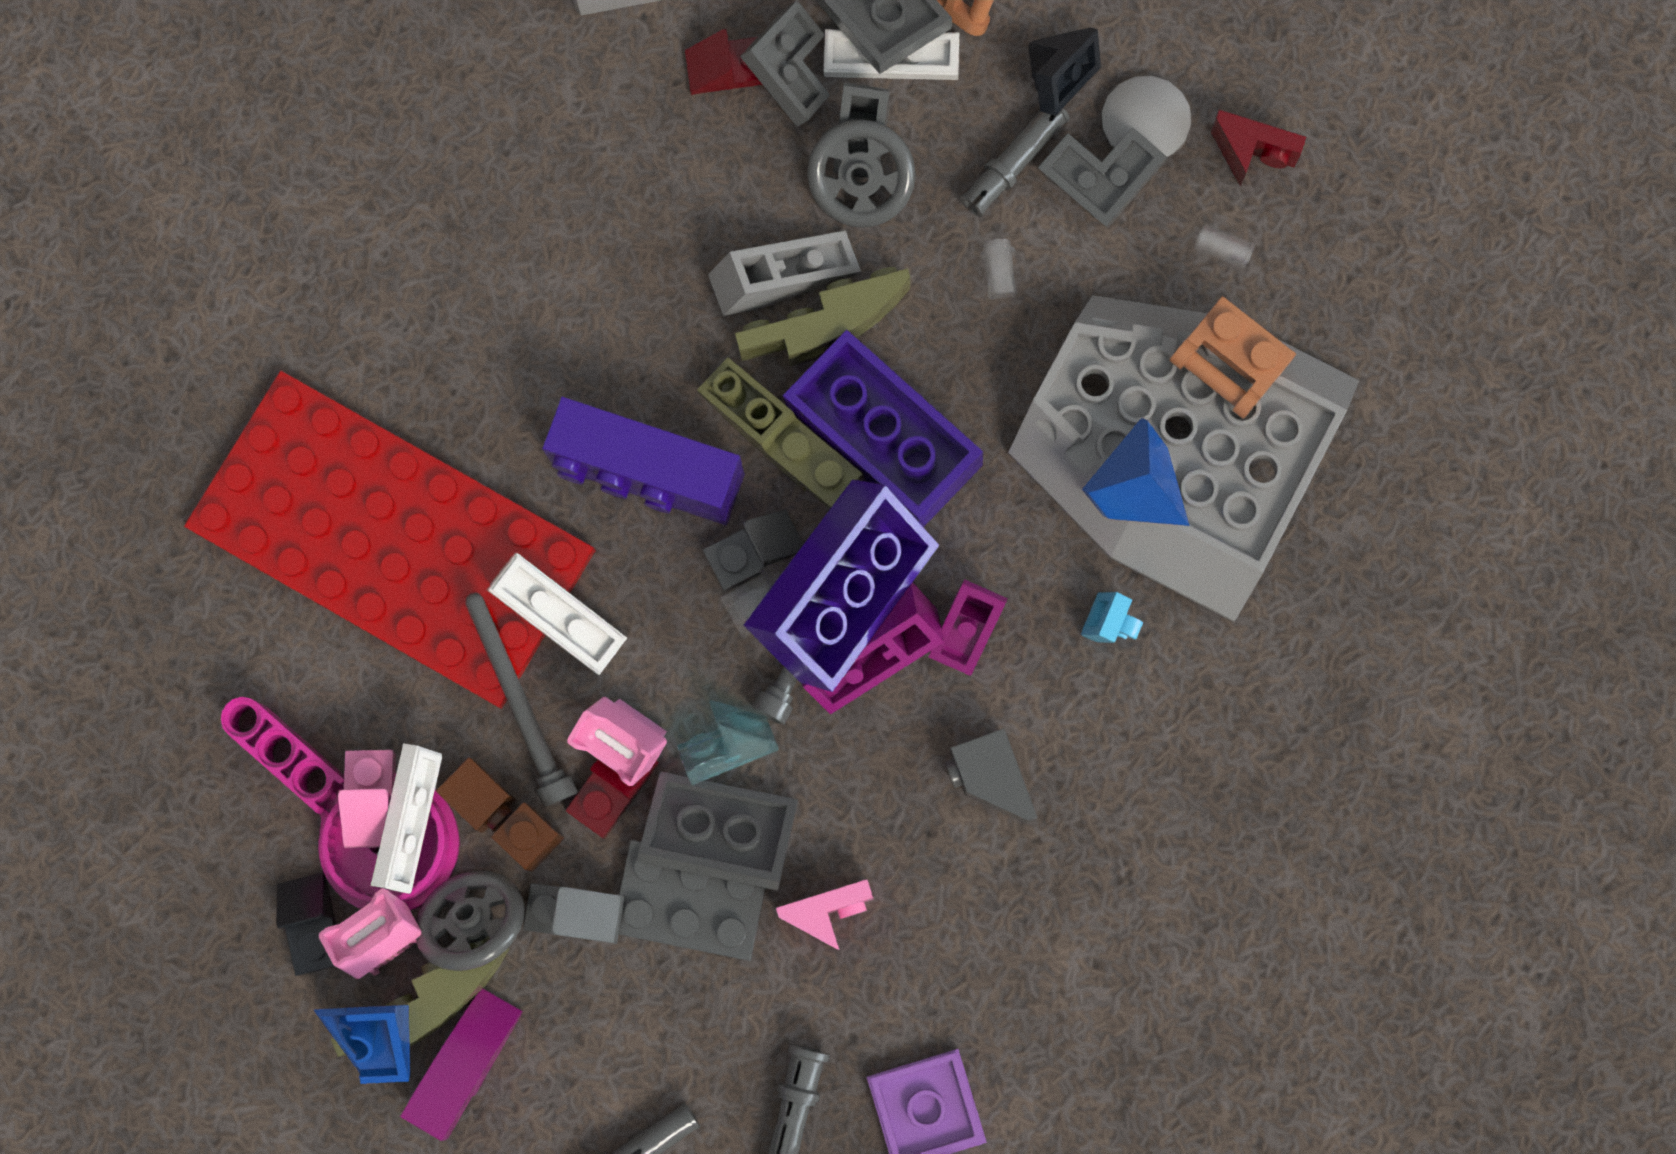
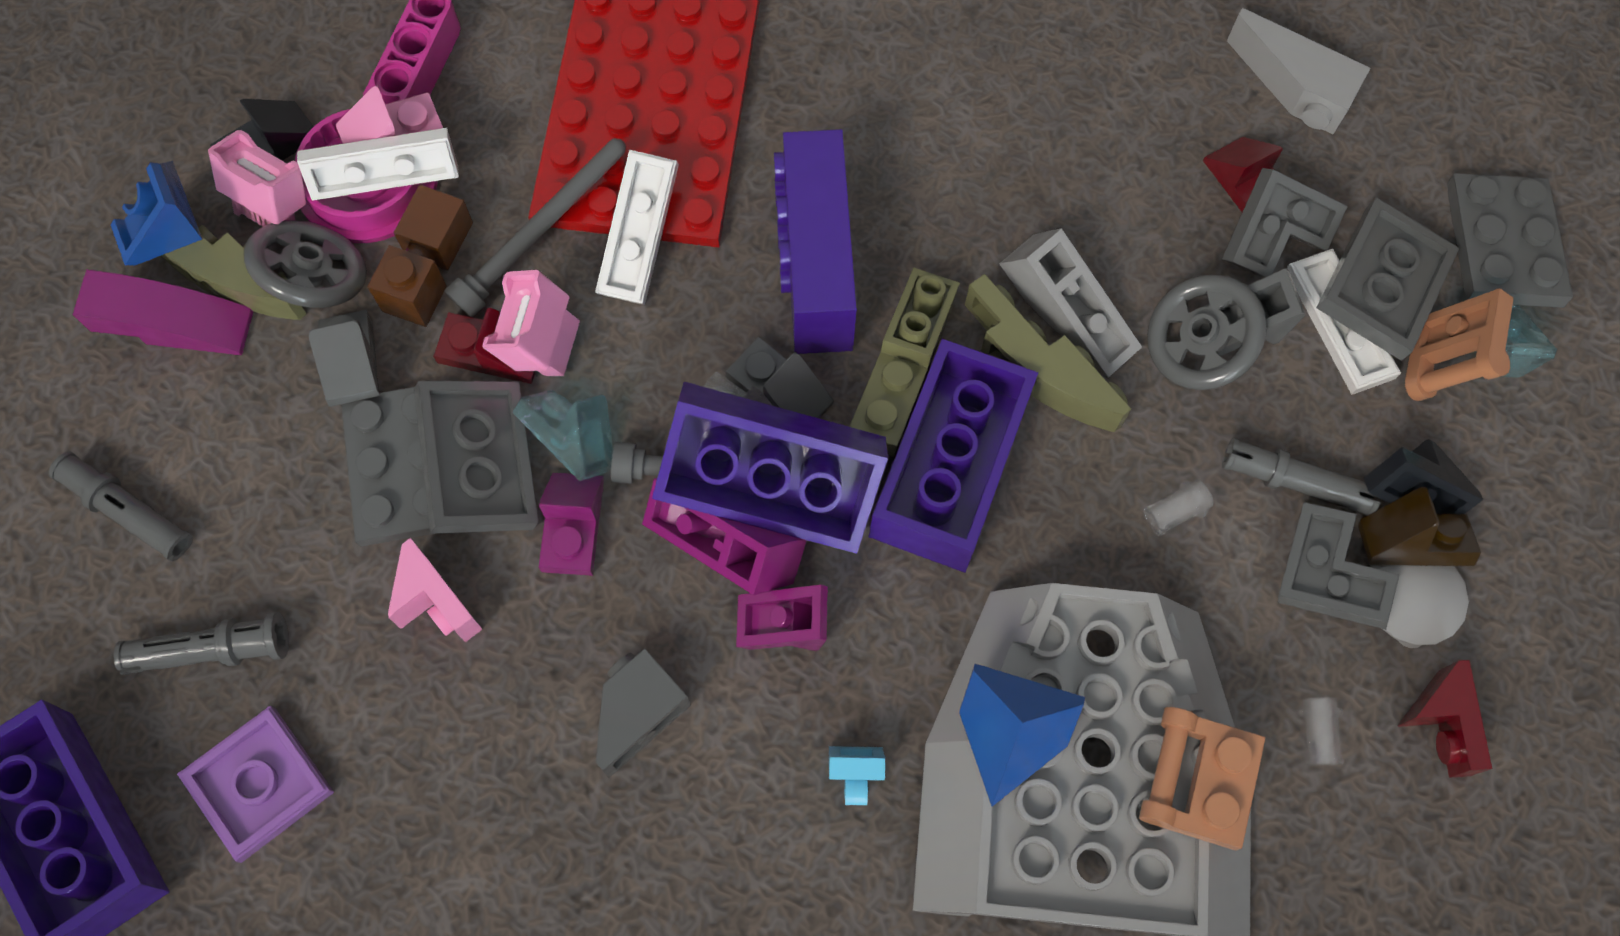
camera: 60 degrees right, 10 degrees down
(807, 773) = (570, 524): none -> magenta slope
(1102, 93) = (1417, 535): none -> dark brown slope

